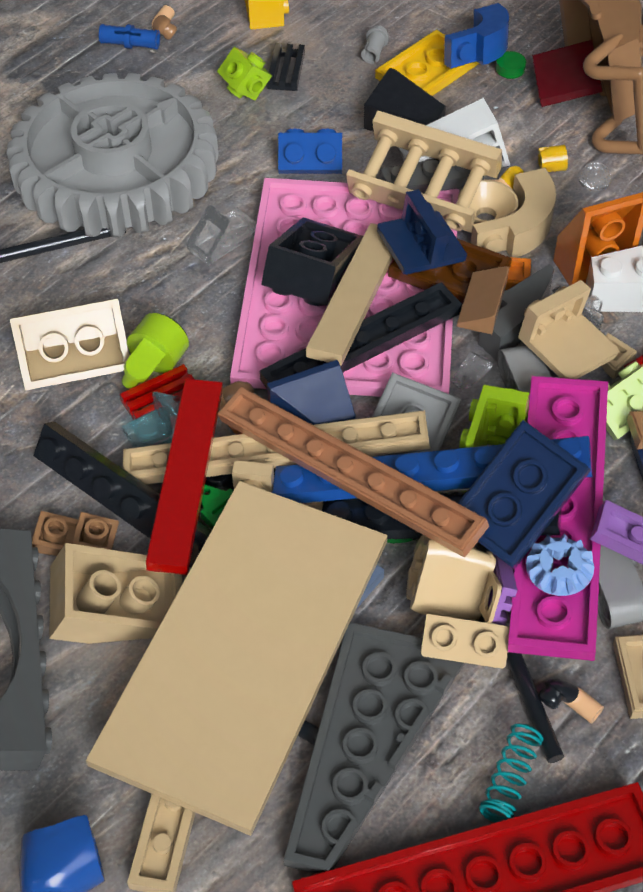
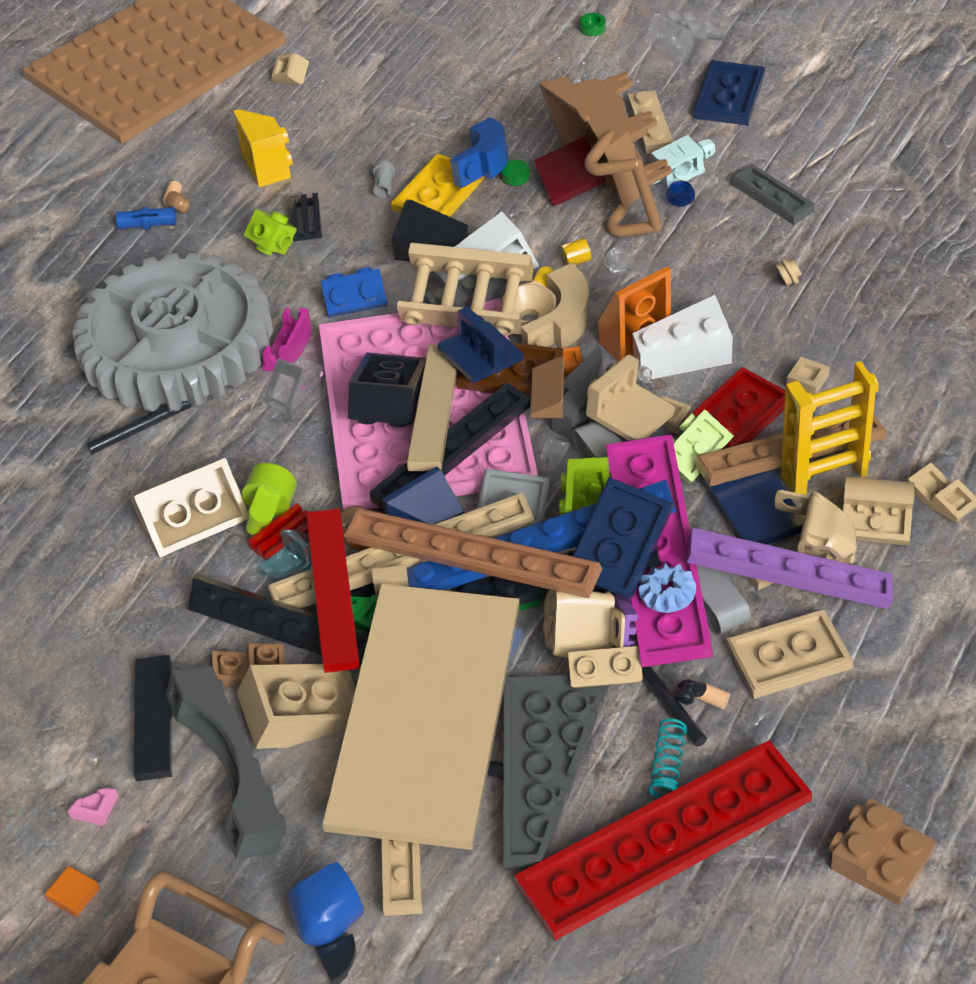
camera: 10 degrees left, 5 degrees down
(232, 188) = (290, 340): none -> dark pink hinge

